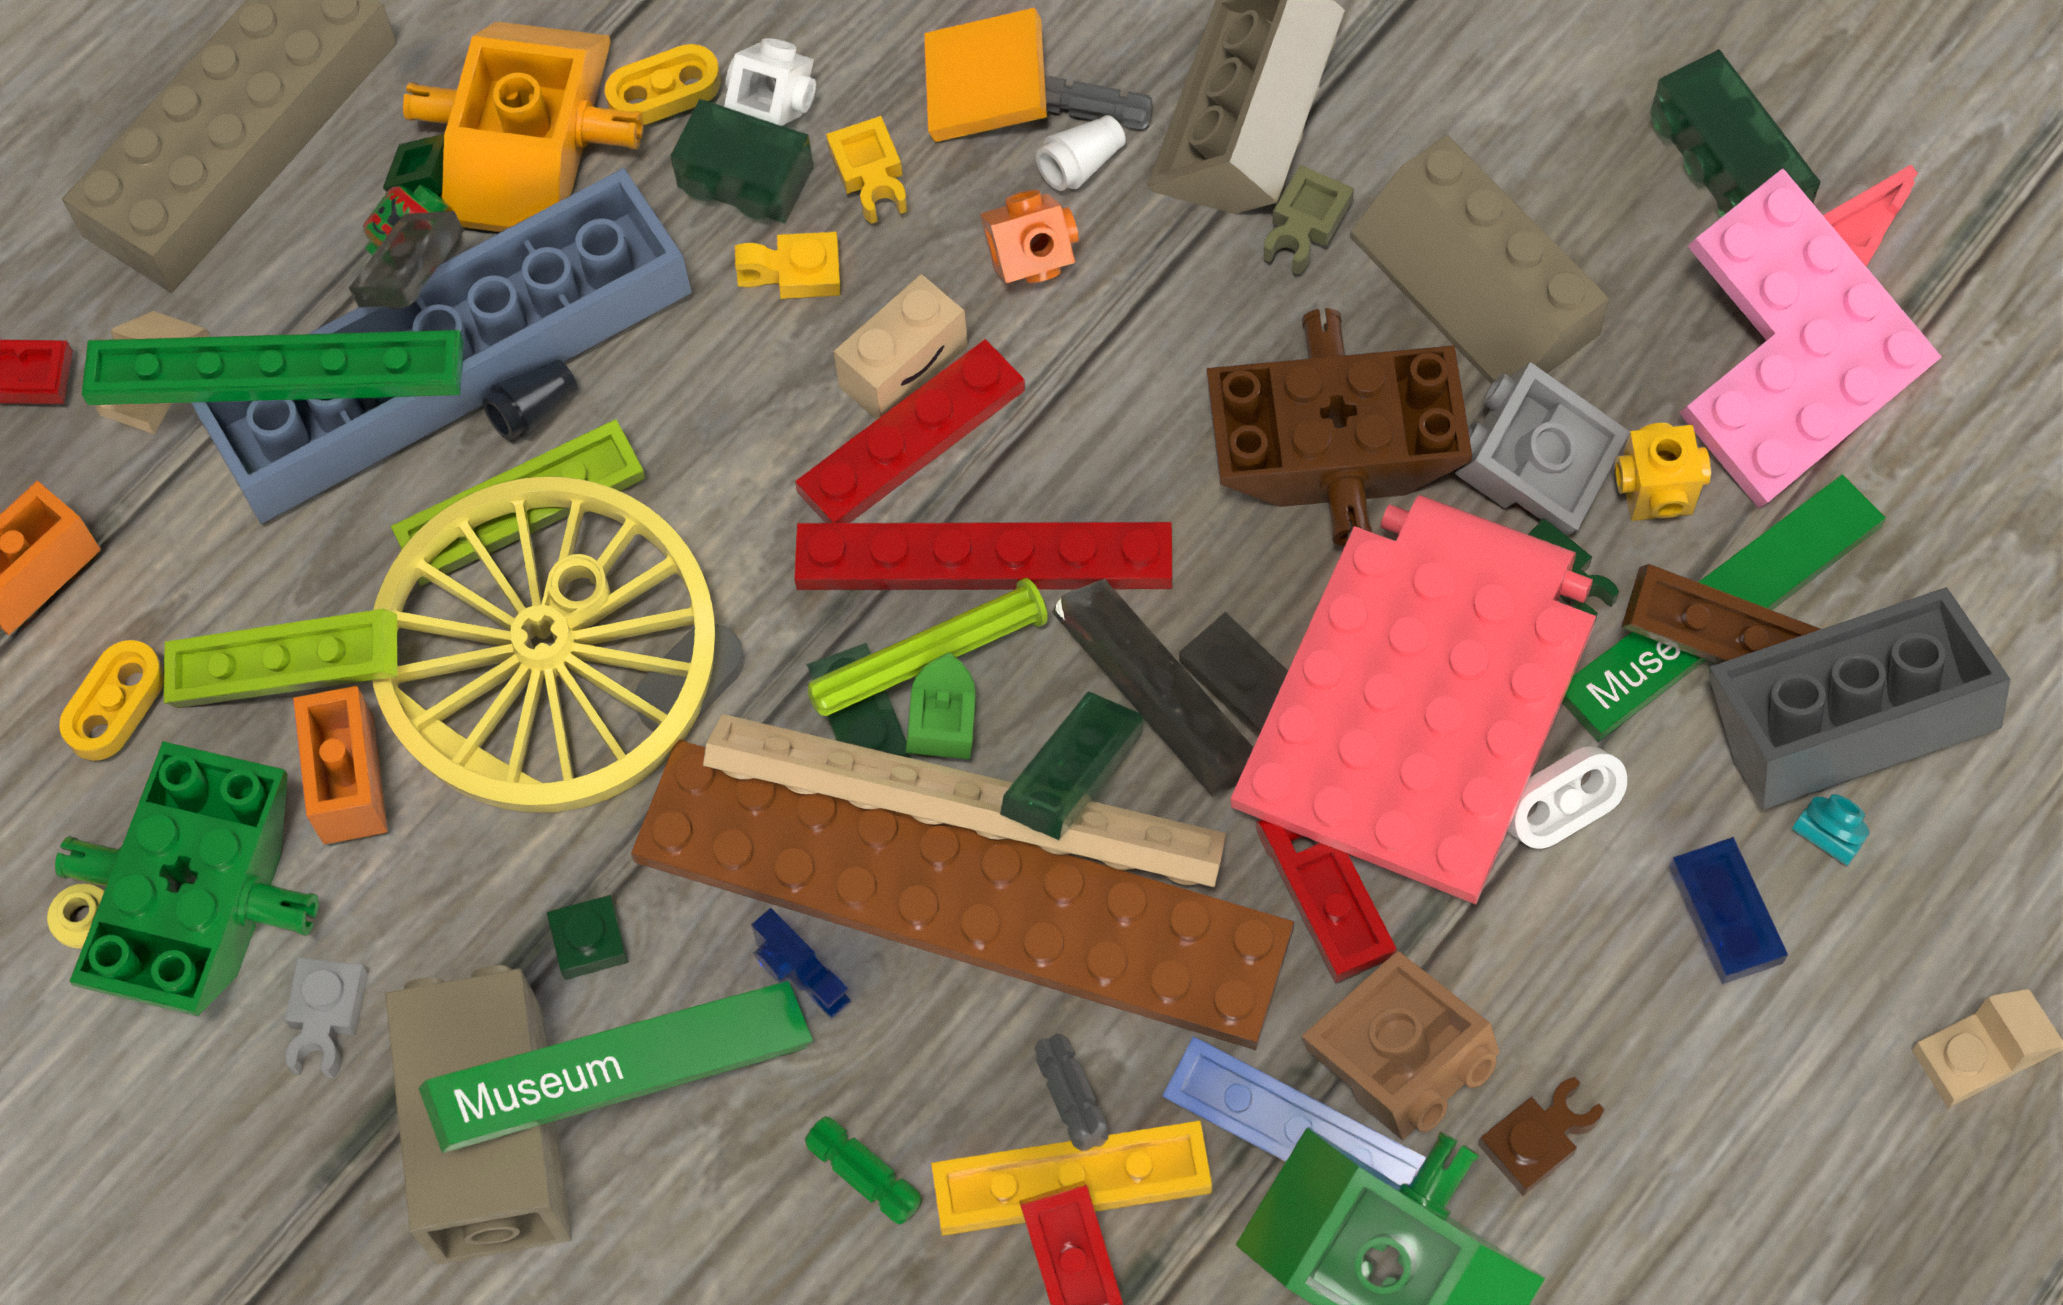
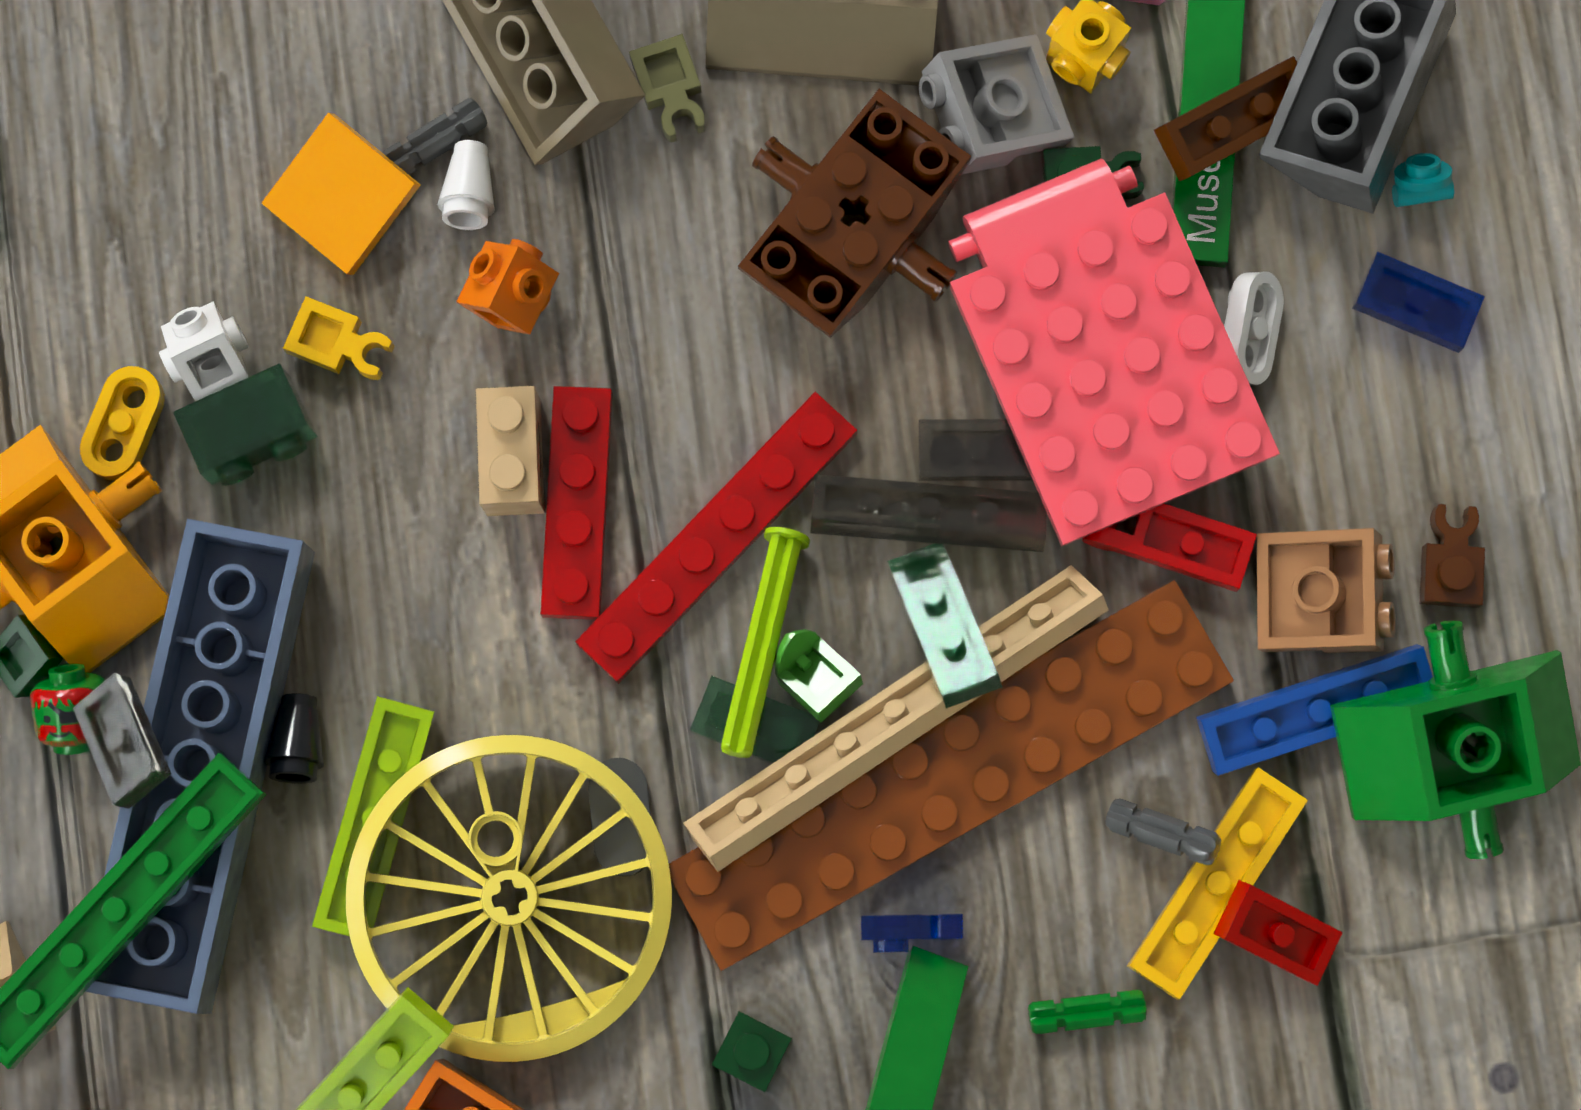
camera: 50 degrees left, 15 degrees up
(801, 265) = (366, 456): yellow plate -> none

